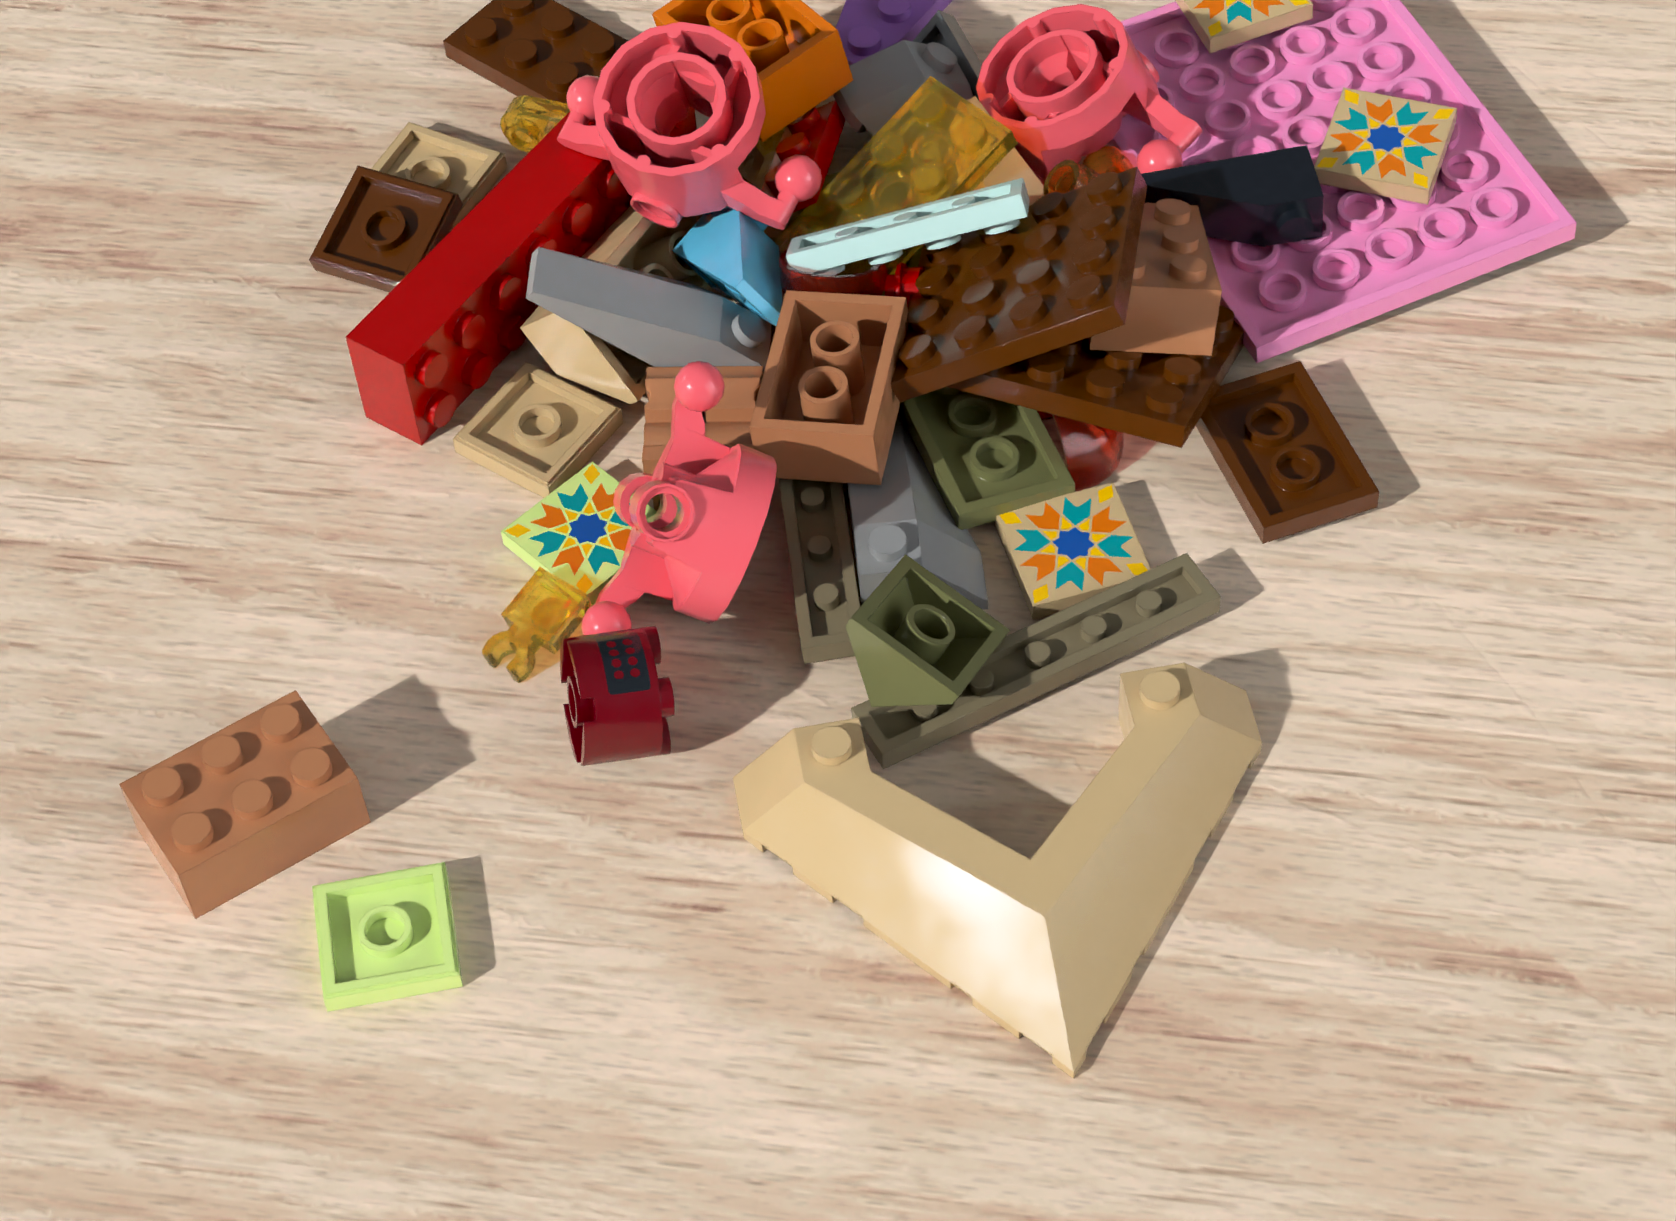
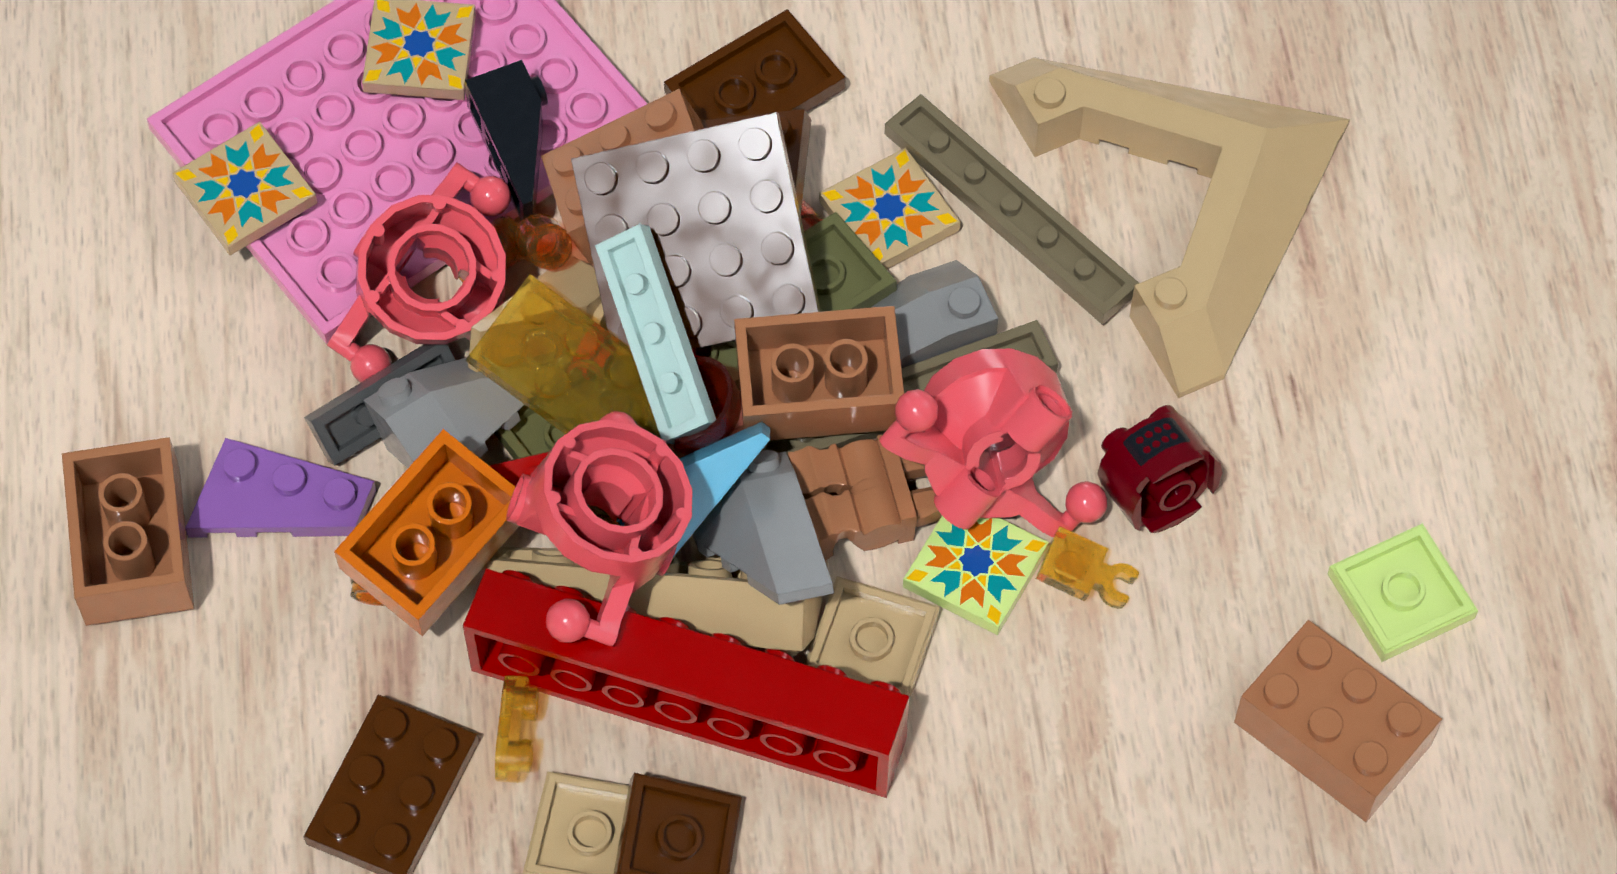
camera: 110 degrees left, 10 degrees up
(920, 639) = (1047, 257): olive slope -> none

